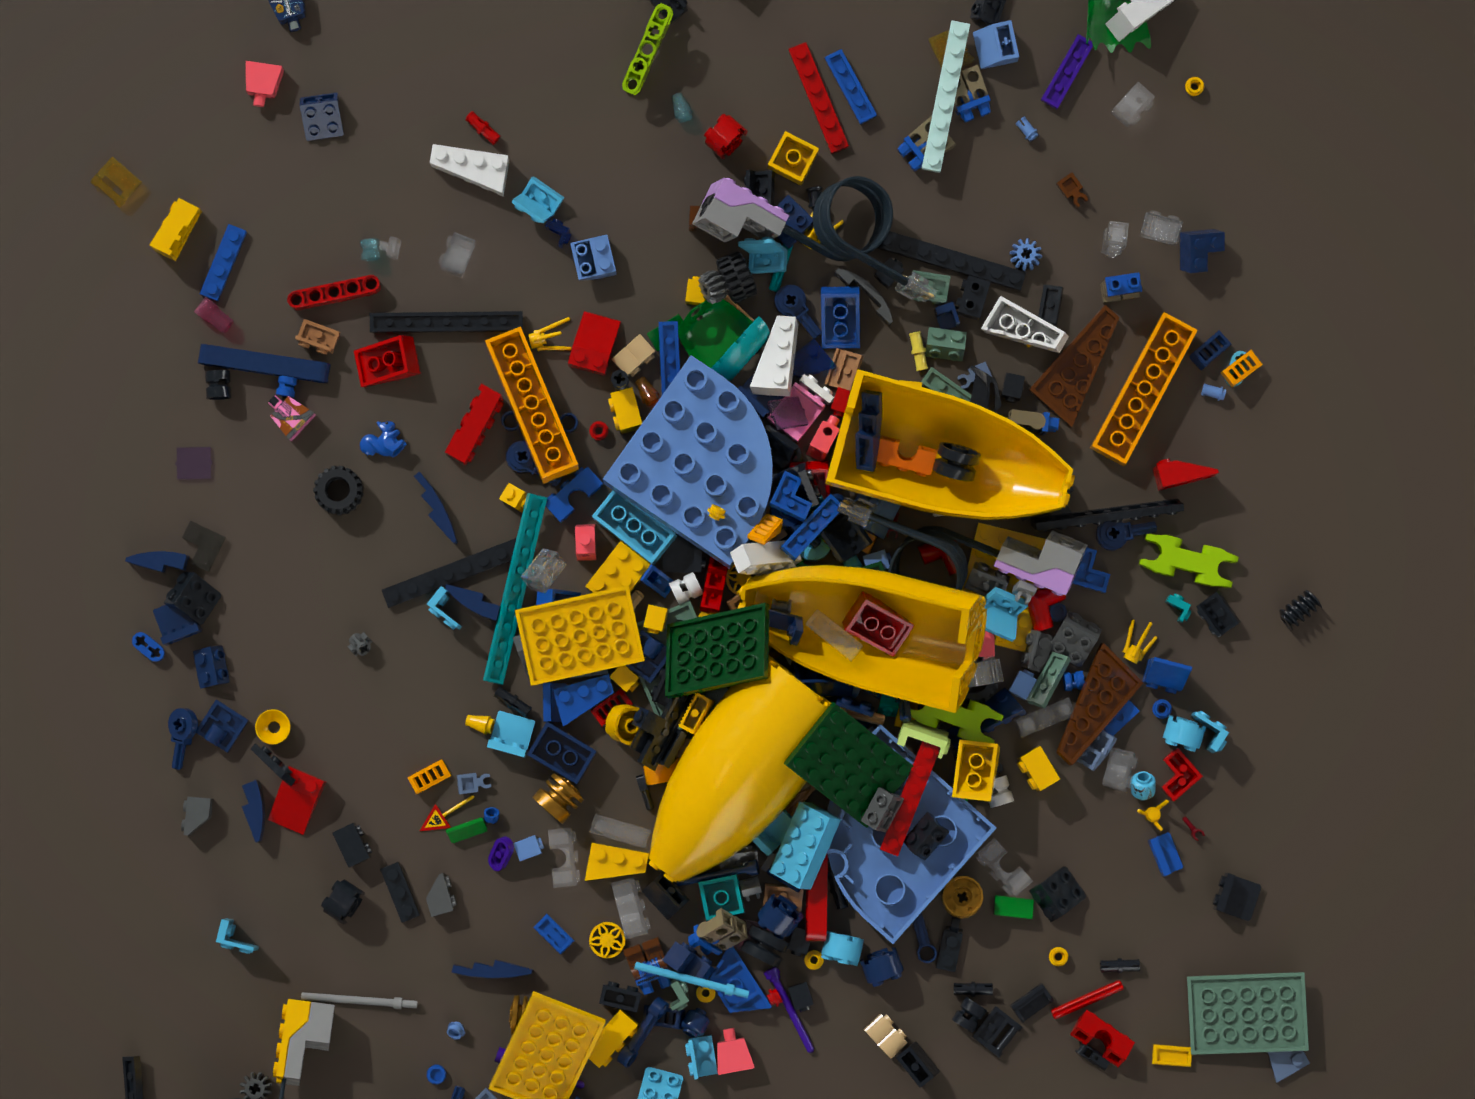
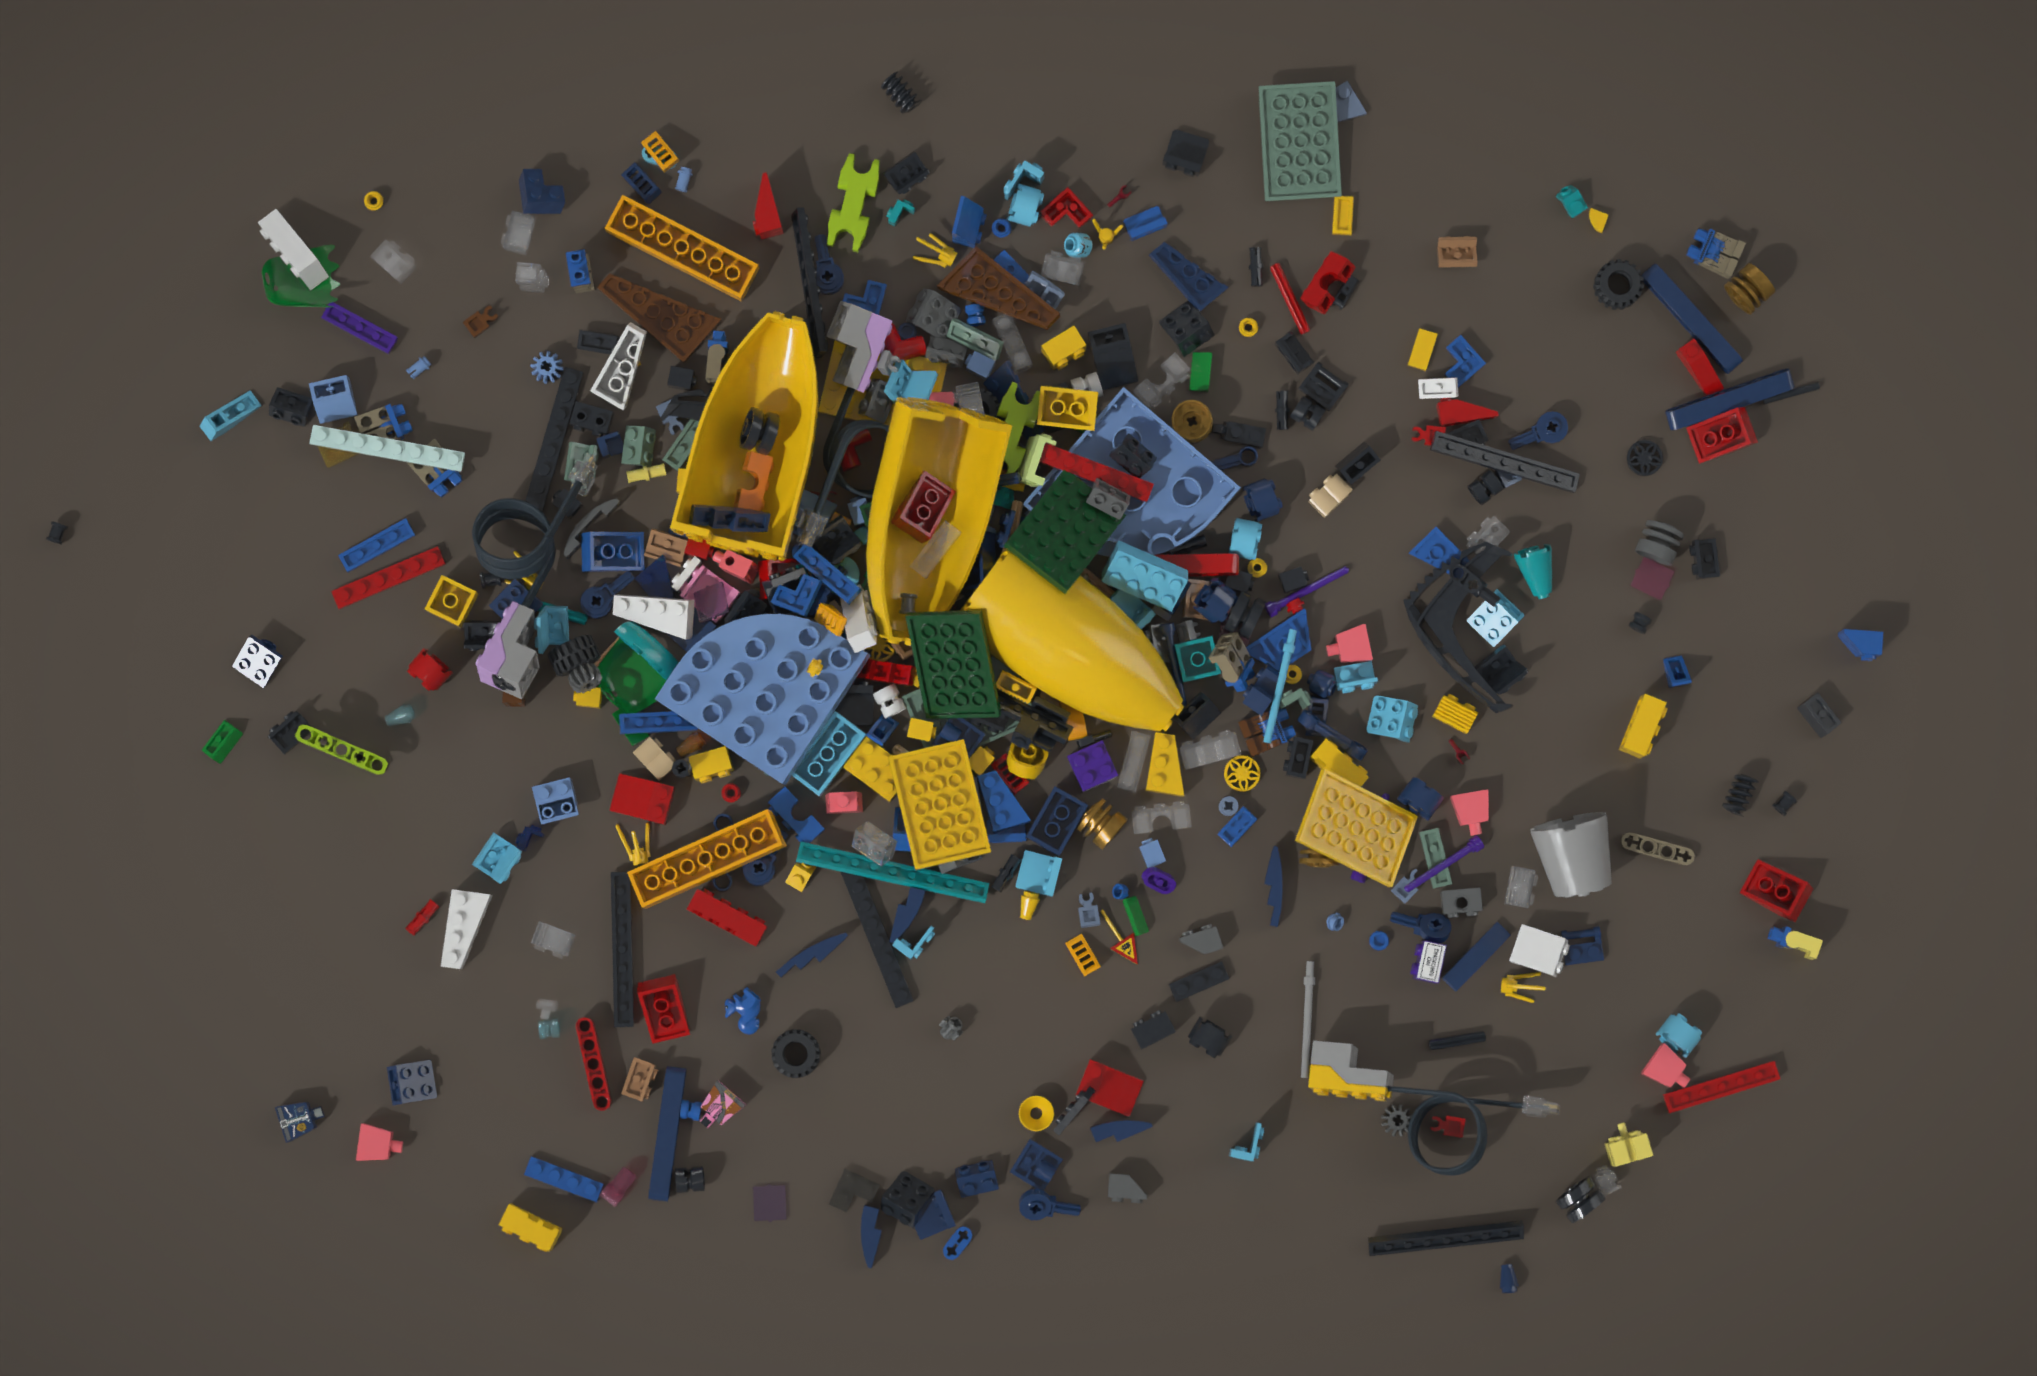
camera: 90 degrees left, 0 degrees up
(118, 175) = (475, 1289): clear yellow plate -> none
(574, 925) = (1228, 806): none -> sand blue wheel
(616, 789) = (1092, 766): none -> dark purple brick
(788, 622) = (924, 592): dark blue bracket -> none
(1029, 818) = (1113, 356): none -> black slope
(1109, 896) = (1191, 281): none -> dark blue wing

